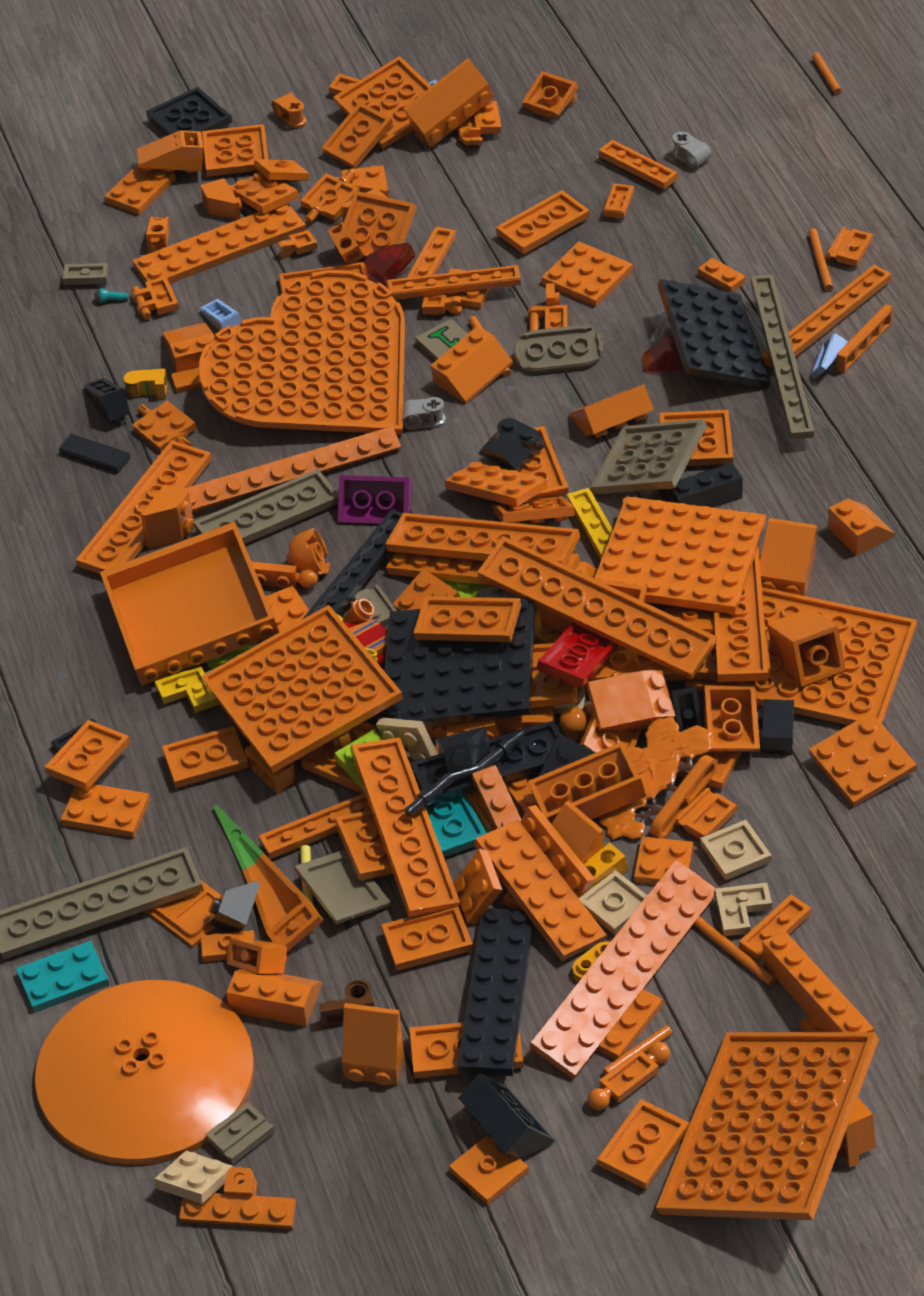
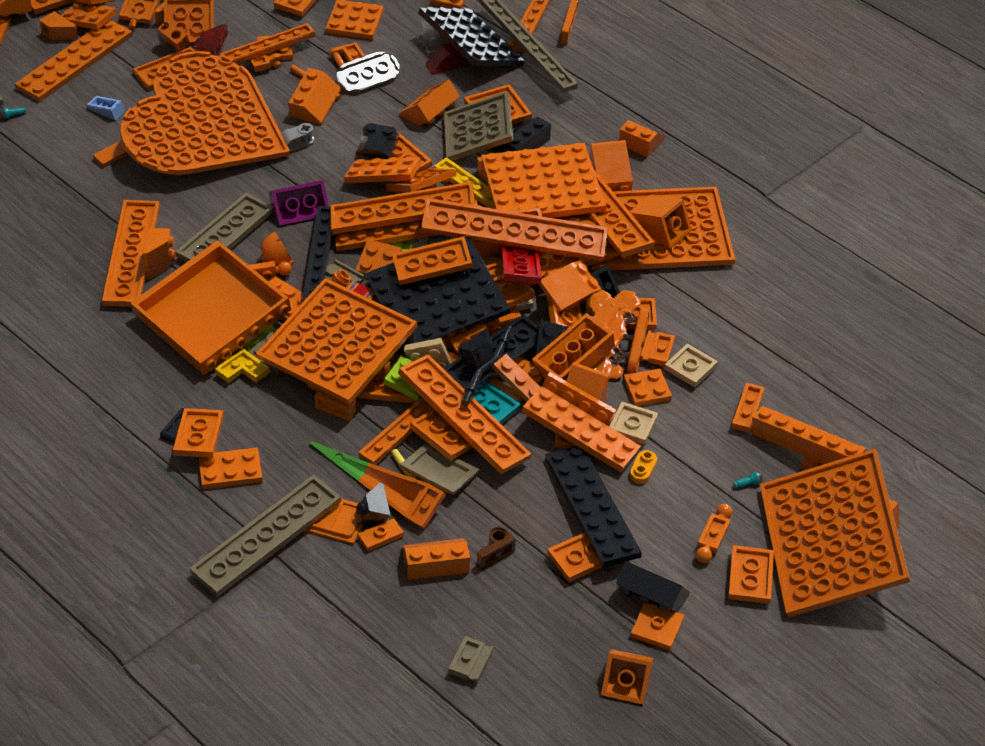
camera: 30 degrees left, 0 degrees up
(62, 976) = (270, 594): teal plate -> none
(94, 453) = (67, 223): black tile -> none
(108, 399) = (56, 182): black slope -> none
(146, 383) = (79, 165): light orange leg -> none
(148, 1108) = (367, 669): orange dish -> none
(158, 233) = (24, 61): orange leg -> none
(161, 297) = (51, 102): orange plate -> none
(163, 425) = (109, 192): orange plate -> none
(187, 344) = (96, 132): orange slope -> none
(193, 1177) = (459, 700): tan plate -> none
(205, 756) = (283, 410): orange plate -> none
(241, 1205) = (500, 709): orange plate -> none
(257, 956) = (409, 534): orange slope -> none
(287, 469) = (228, 195): orange plate -> none
(299, 242) = (135, 43): orange plate -> none
(372, 1044) = (535, 566): orange slope -> none
(410, 1217) = (627, 676): none -> orange slope
(426, 938) = (519, 485): orange plate -> none
(433, 252) = (238, 29): orange plate -> none
(440, 338) = (281, 86): dark tan tile -> none
(477, 886) = (539, 438): orange plate -> none
(552, 297) = (341, 38): orange plate -> none
(575, 721) = (536, 310): orange piece -> none
(605, 862) = (612, 399): light orange leg -> none
(623, 969) = (667, 465): orange plate -> none
(630, 1025) = (691, 500): orange plate -> none
(644, 1046) = (711, 509): orange bar -> none
(726, 1023) = (754, 479): none -> teal piece
(731, 717) = (641, 277): orange slope -> none
(734, 951) = (729, 431): orange bar -> none
(735, 903) = (714, 400): tan plate -> none
(777, 726) = (669, 278): black brick -> none
(827, 354) = (553, 33): light blue slope -> none
(862, 759) = (737, 284): orange plate -> none

